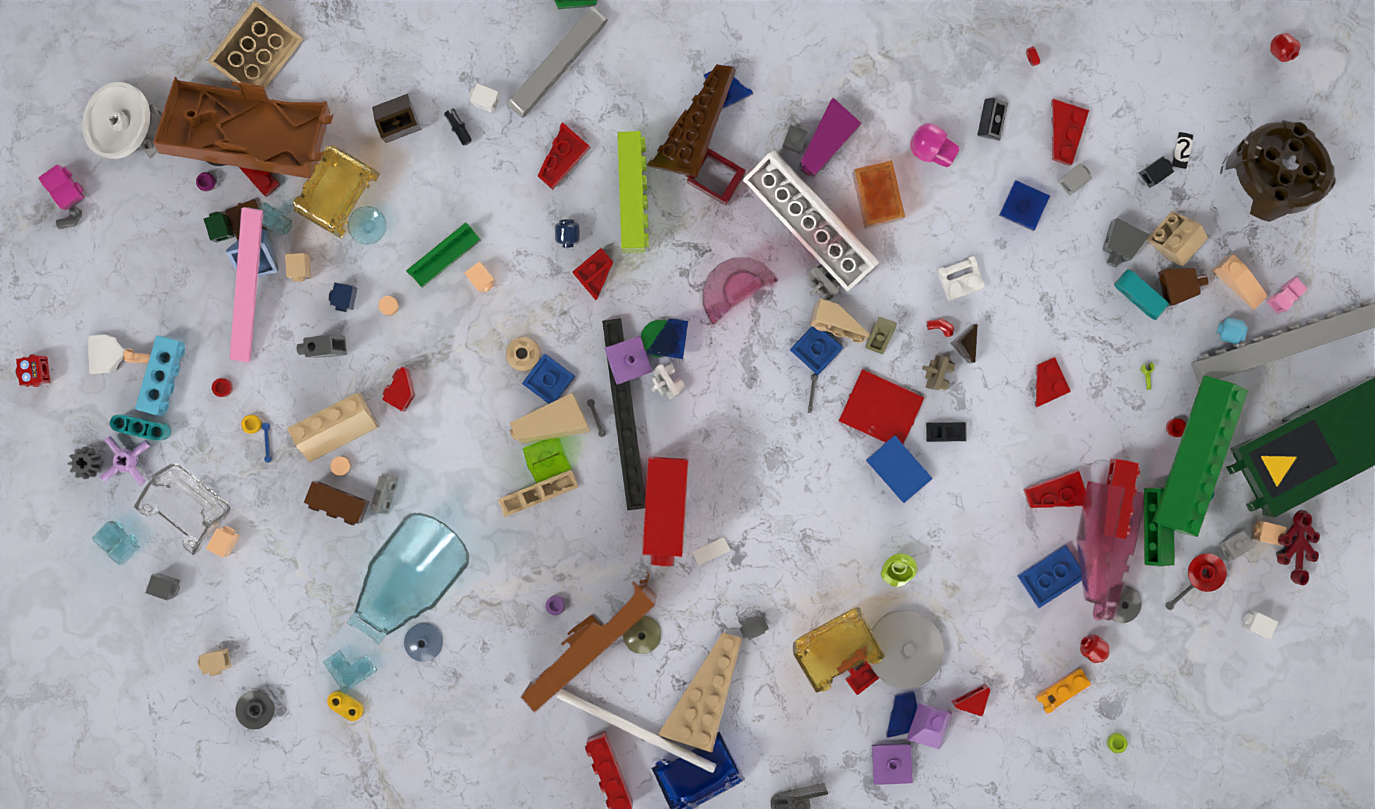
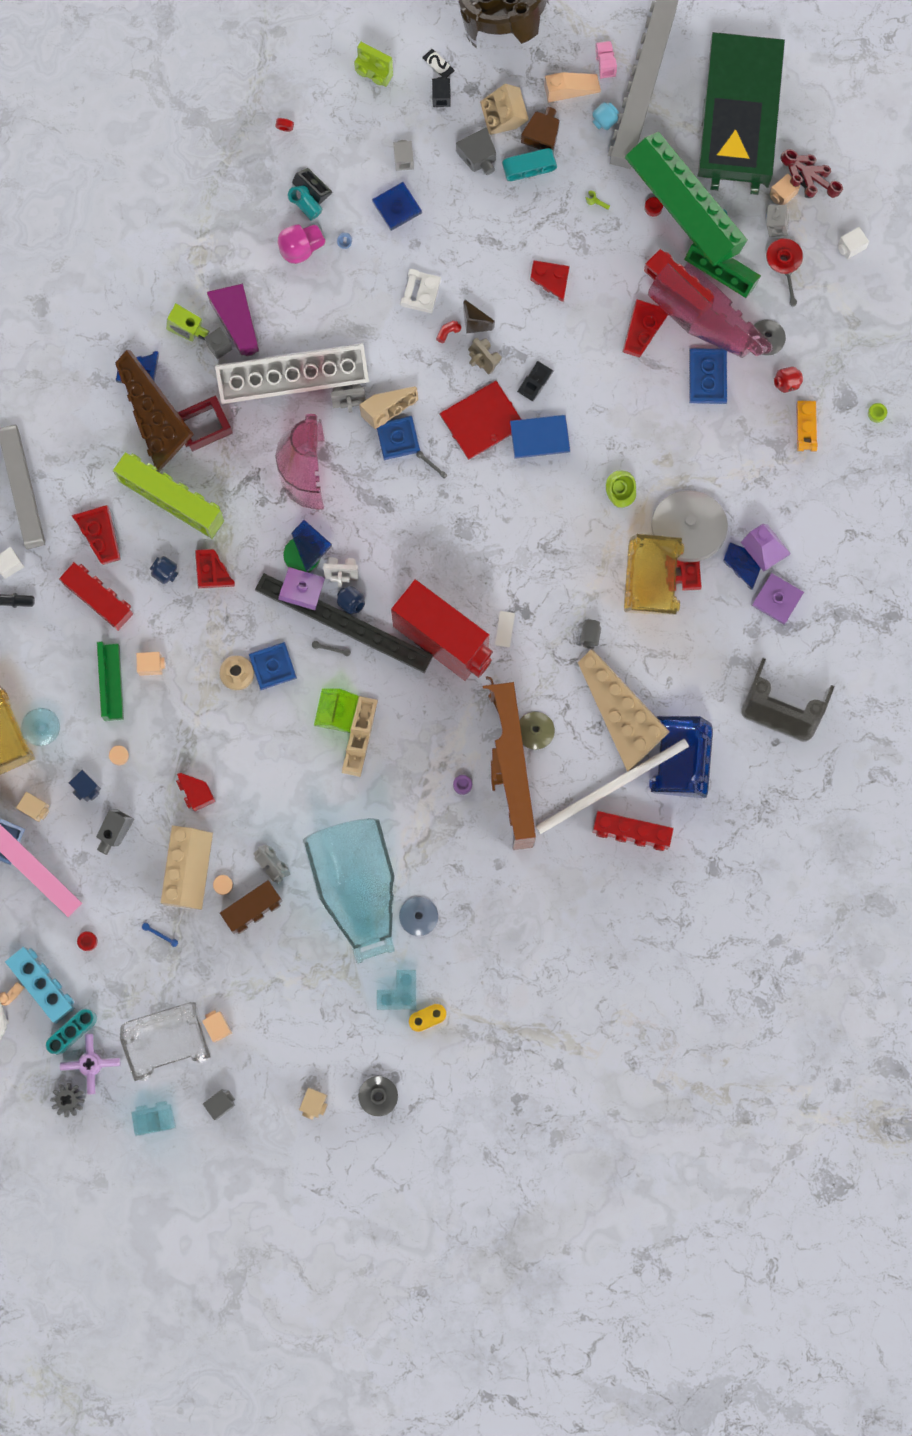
camera: 65 degrees left, 10 degrees down
(251, 424) = (135, 937): yellow tile -> none
(506, 192) = (98, 598): none -> red brick
(551, 421) = (308, 684): tan slope -> none
(647, 407) = (350, 600): none -> dark blue head
(792, 92) = (185, 324): none -> lime torso
(878, 194) = (308, 308): clear orange brick -> none
(880, 335) = (421, 379): olive slope -> none
(957, 184) = (341, 238): none -> medium blue hinge
(972, 125) = (305, 203): none -> teal piece
(973, 701) = (769, 499): red slope -> none
(1068, 126) = (359, 135): red wing -> none
(1140, 96) = (373, 64): none -> lime plate

